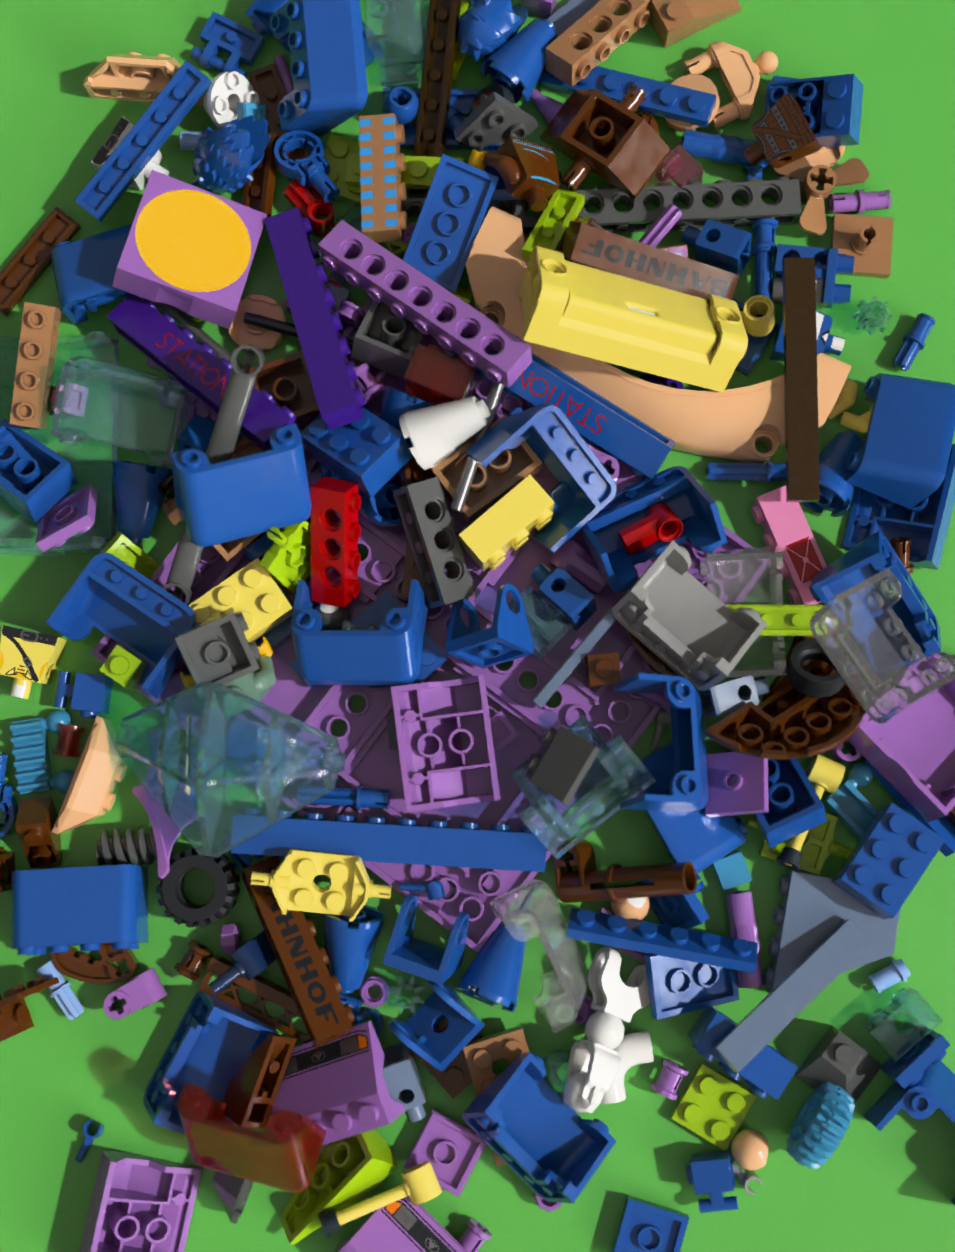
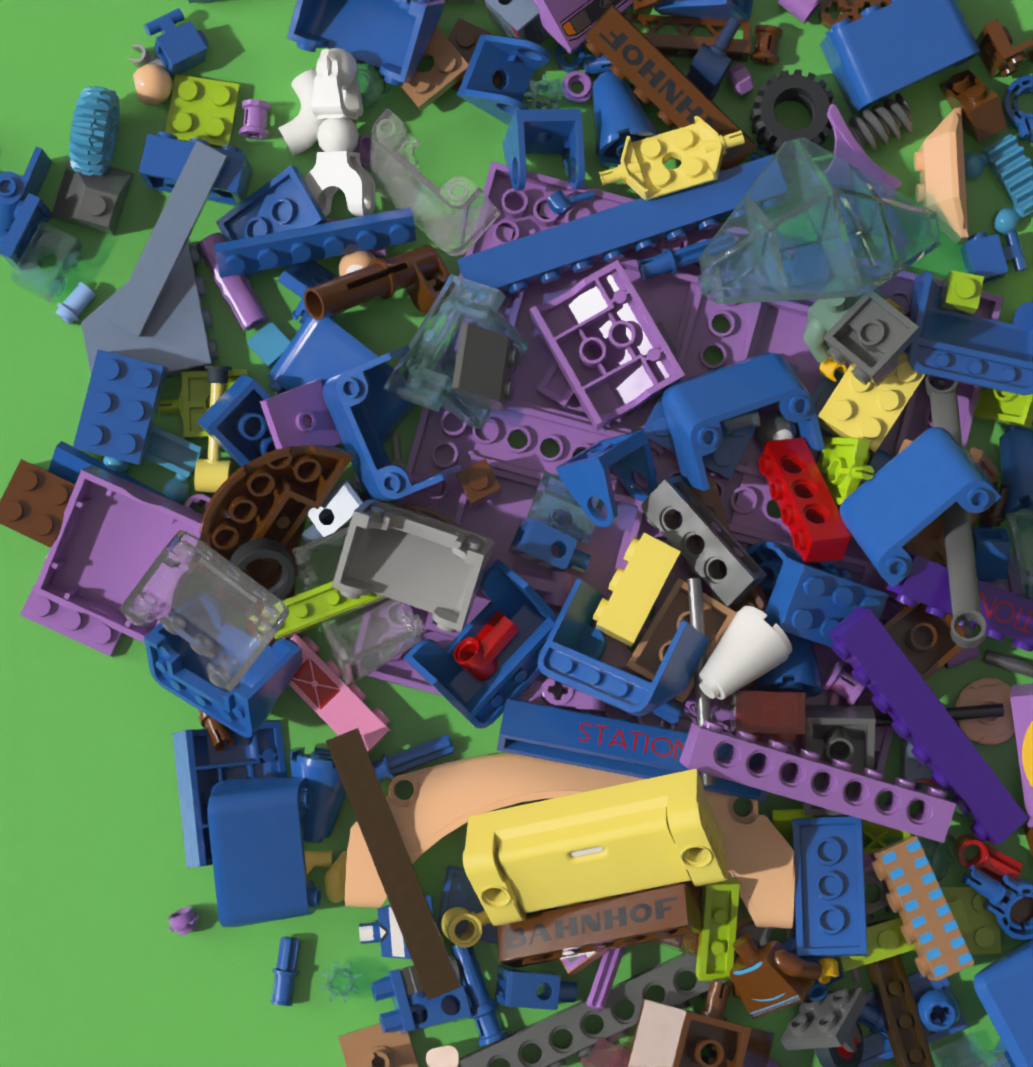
camera: 155 degrees right, 0 degrees up
(68, 740) = (986, 204): clear red bush -> none
(350, 313) = (892, 752): medium lavender bush -> none
(496, 971) = (466, 146): blue cone -> none
(574, 659) = (512, 482): sand blue tile -> none

